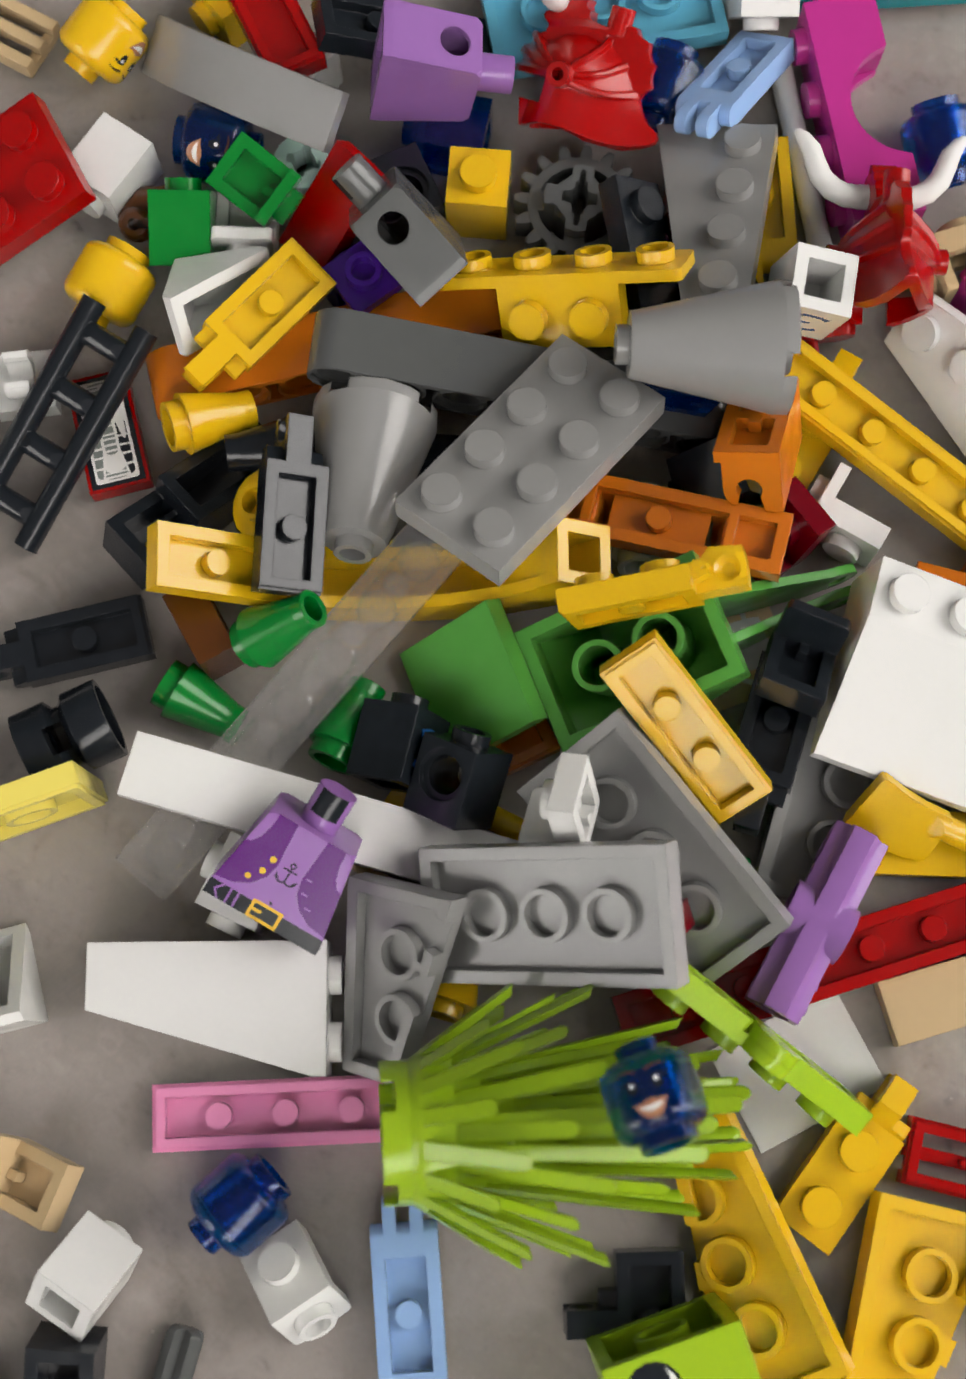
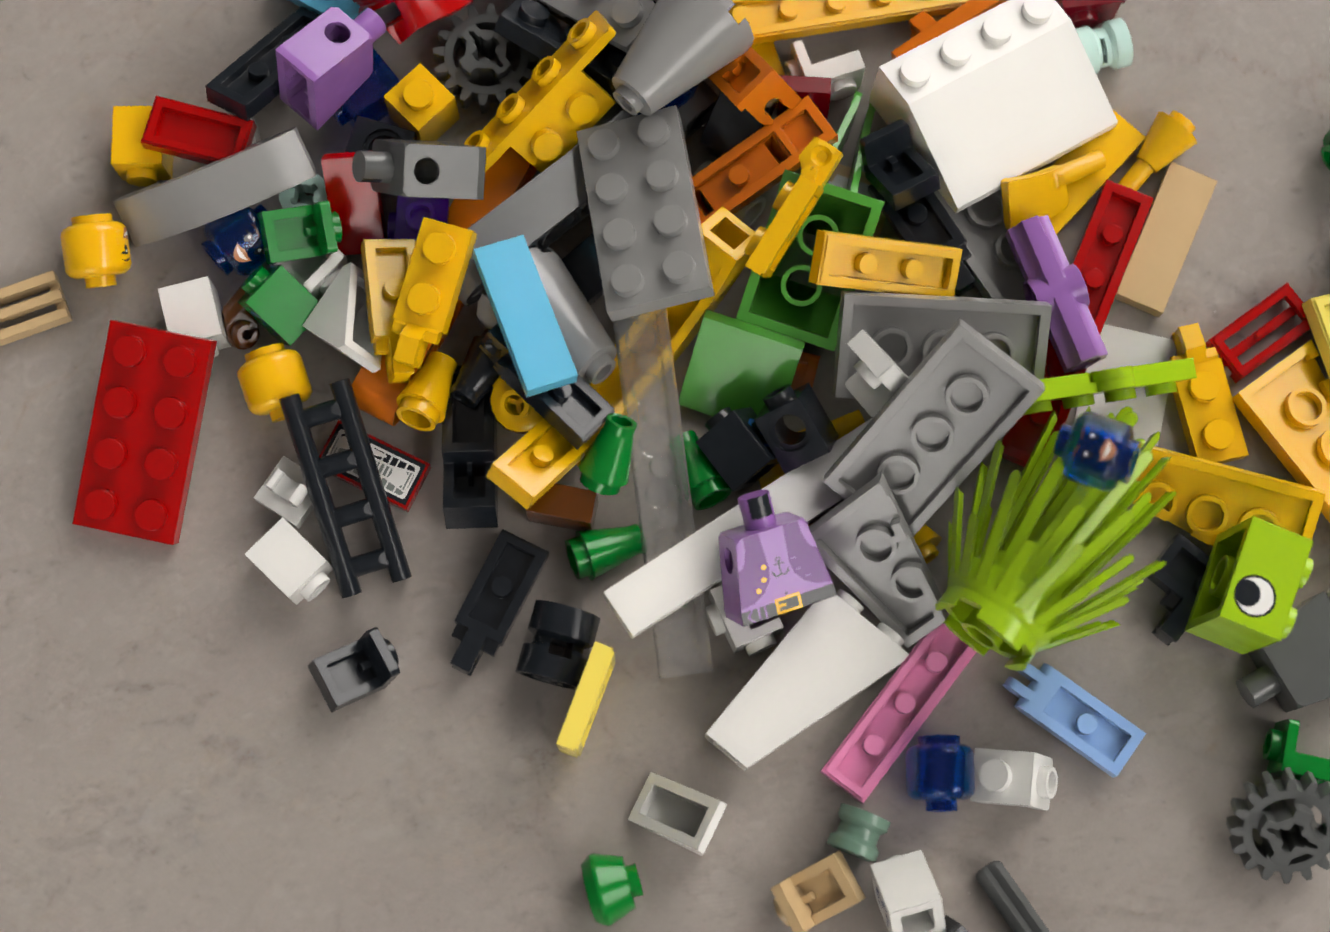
camera: 55 degrees left, 0 degrees up
(115, 1172) = (858, 832): none -> sand green wheel
(285, 329) = (430, 288): none -> yellow hinge
(330, 432) = (525, 315): none -> medium azure tile

